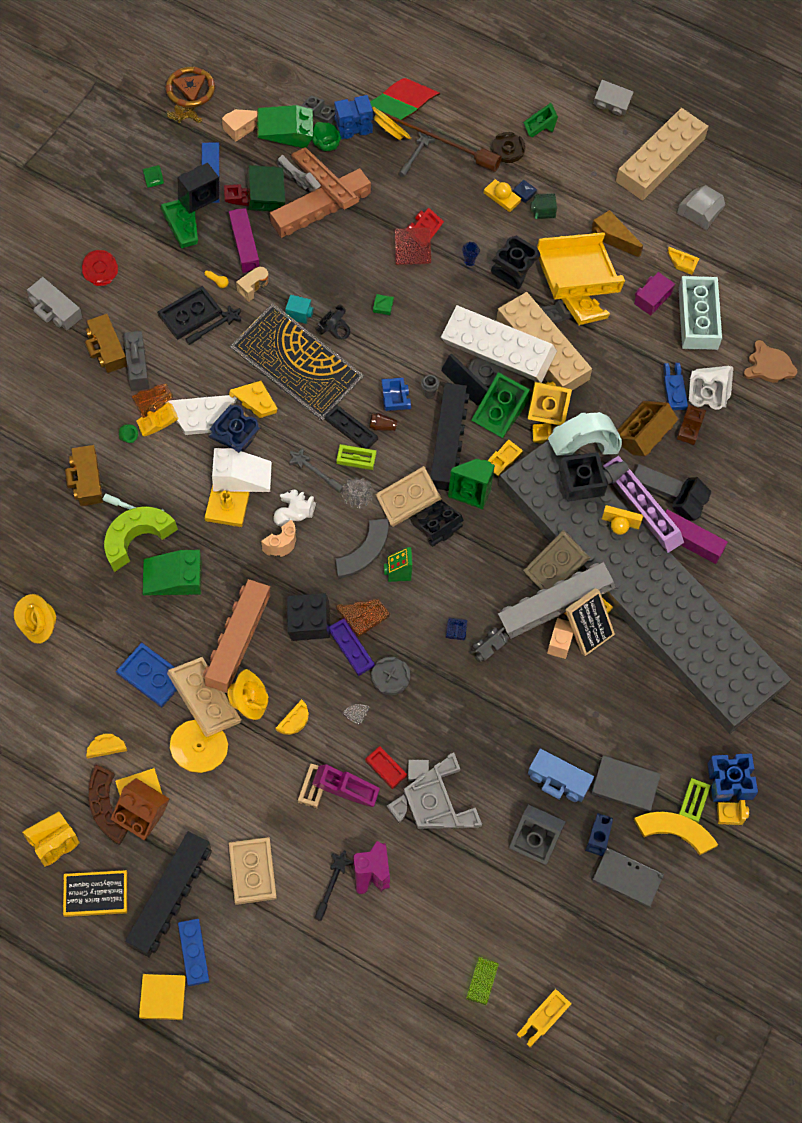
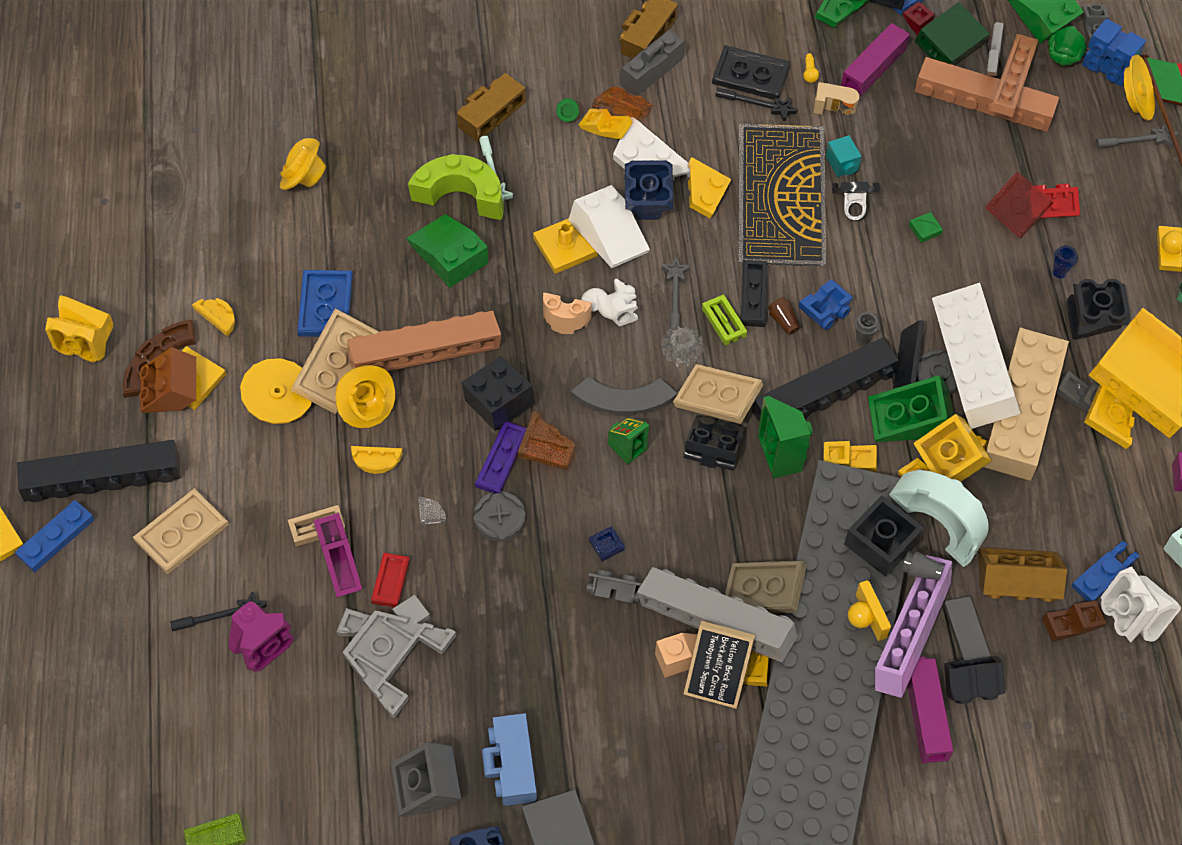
camera: 55 degrees right, 5 degrees down
(95, 893) = (56, 409): black tile -> none

